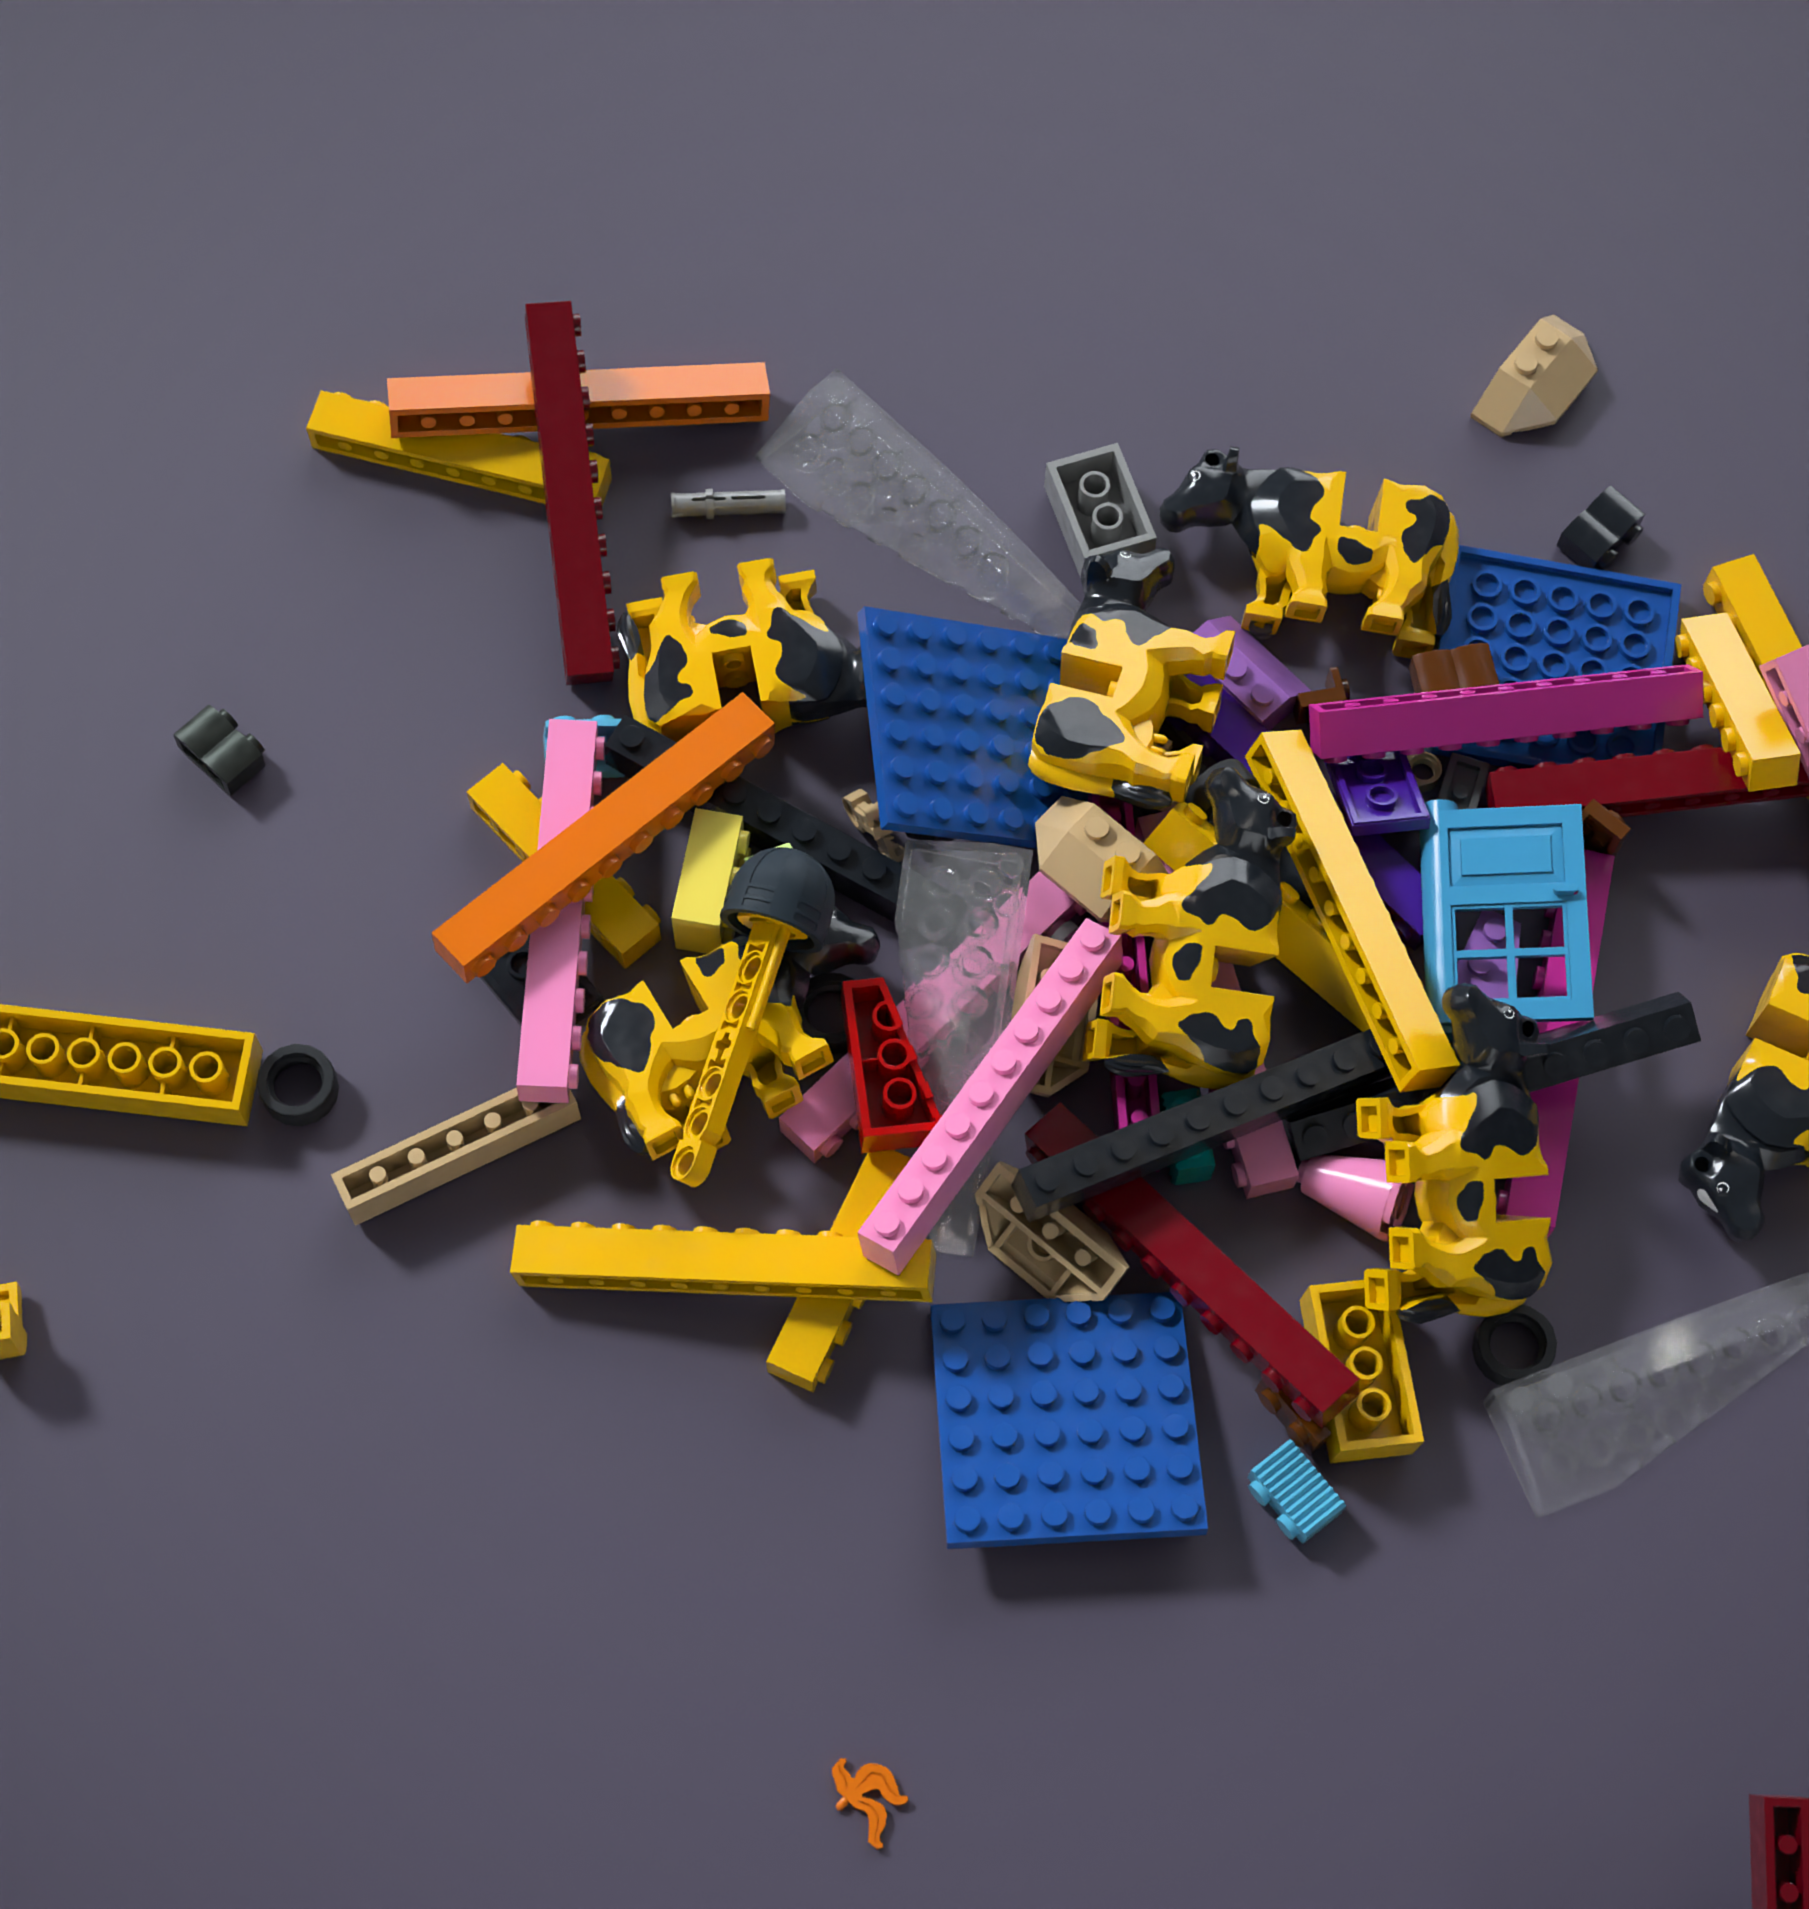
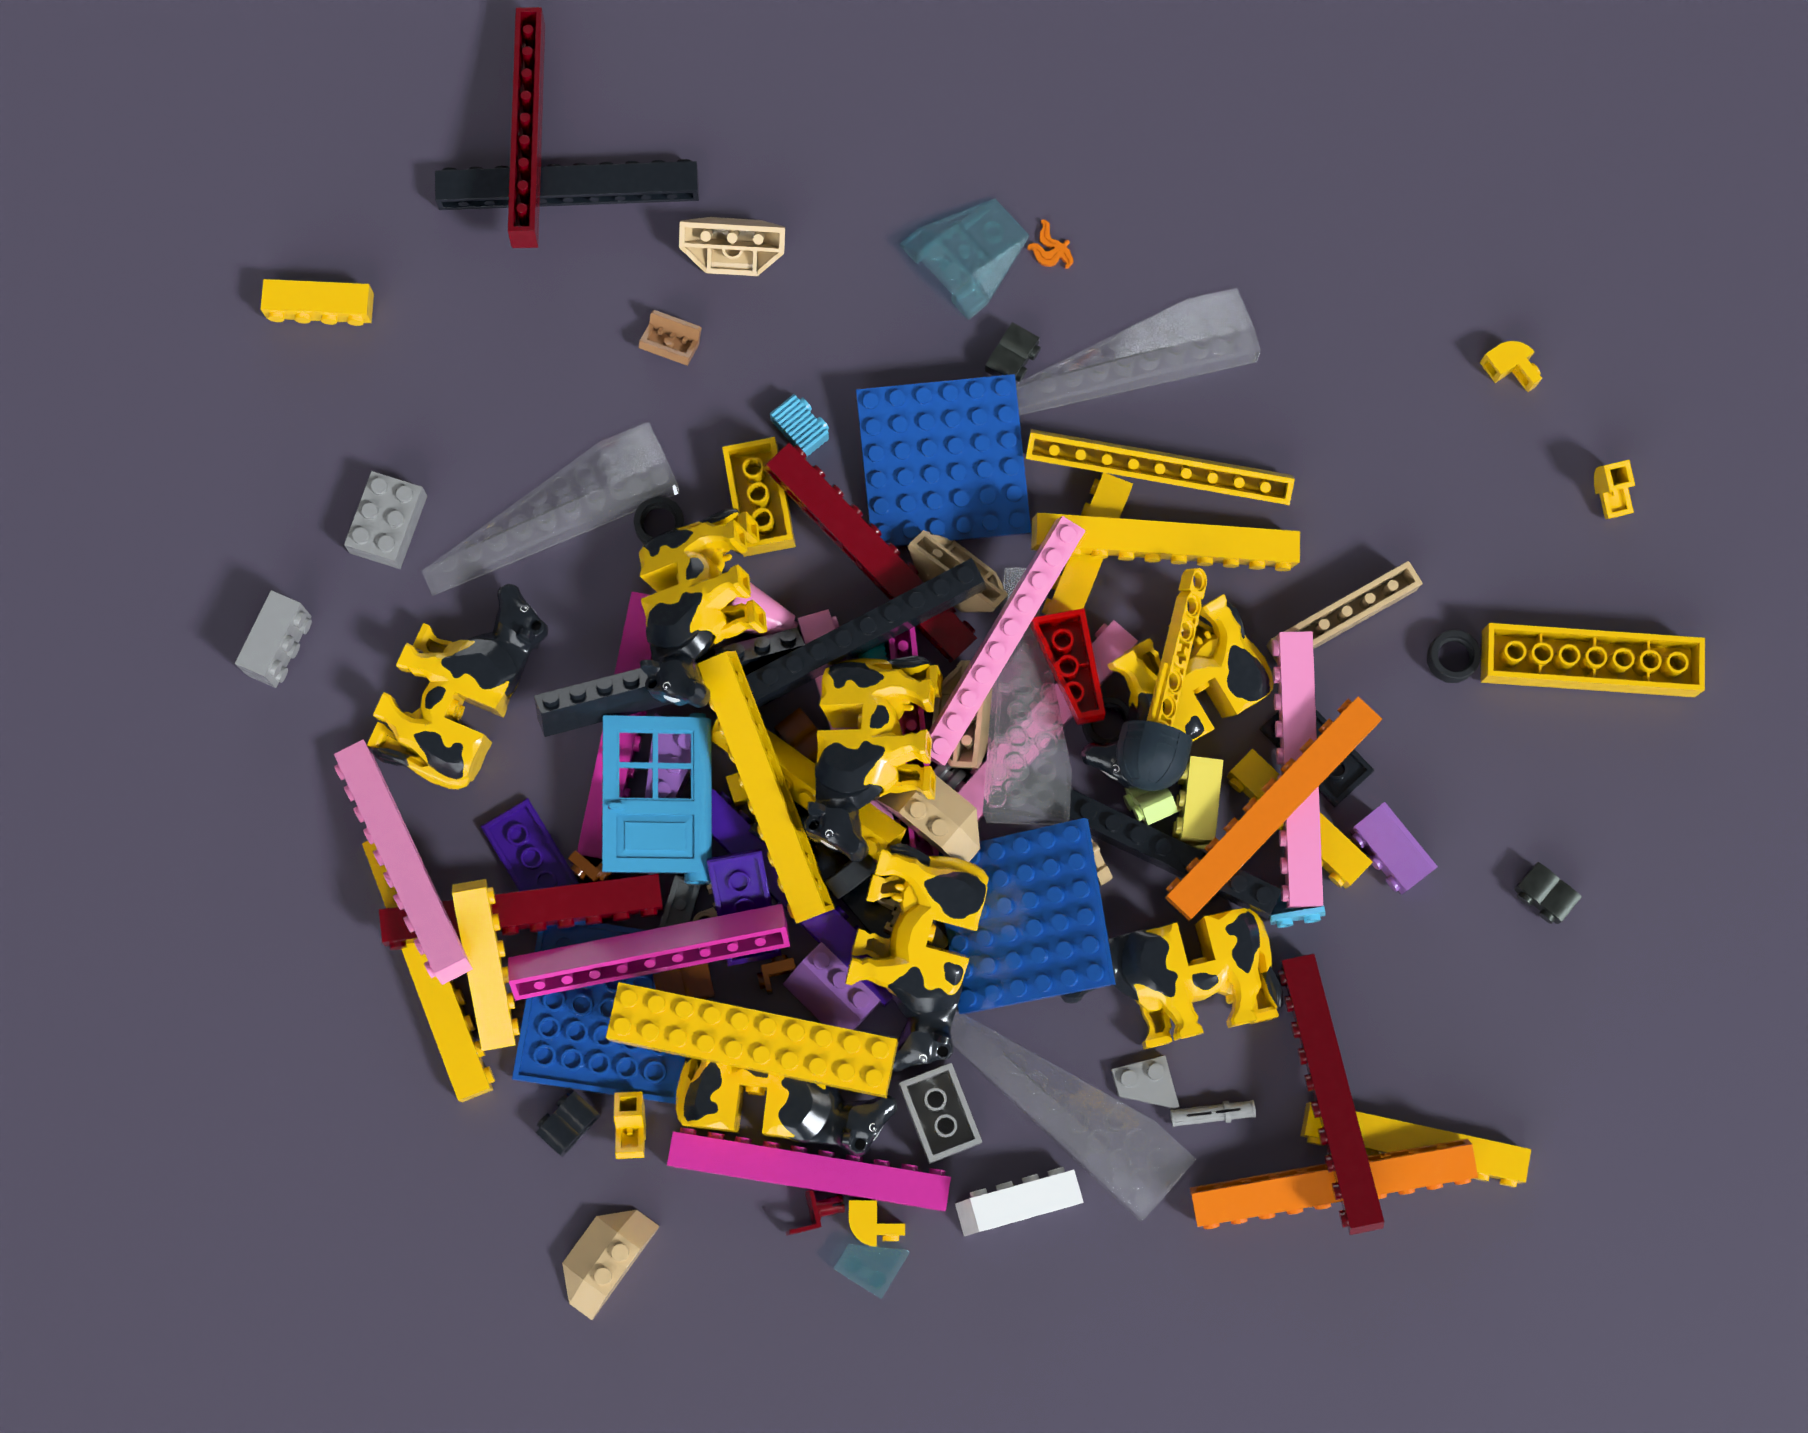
camera: 175 degrees right, 10 degrees up
(121, 1554) = (1514, 358): none -> yellow brick
(435, 811) = (1392, 849): none -> medium lavender slope
(667, 1609) = (1175, 344): none -> clear wedge
(721, 1390) = (1160, 467): none -> yellow brick
(815, 545) = (1146, 1082): none -> light grey wing
(944, 1598) = (1013, 353): none -> pearl dark grey brick
(998, 404) = (1018, 1202): none -> white wedge
(1010, 1792) = (969, 252): none -> clear light blue wedge
(1181, 438) = (809, 1171): none -> dark pink brick
(1193, 351) = (871, 1266): none -> clear light blue wing
(1197, 390) = (864, 1223): none -> yellow brick
(1263, 415) = (819, 1209): none -> dark red bracket
(1295, 1014) = (799, 733): none -> reddish brown brick
(1365, 570) = (752, 1040): none -> yellow brick
(1415, 1816) = (732, 244): none -> tan wedge
(1510, 1650) = (671, 337): none -> medium nougat bracket
(1517, 518) = (629, 1124): none -> yellow brick
(1680, 879) = (528, 849): none -> dark purple tile

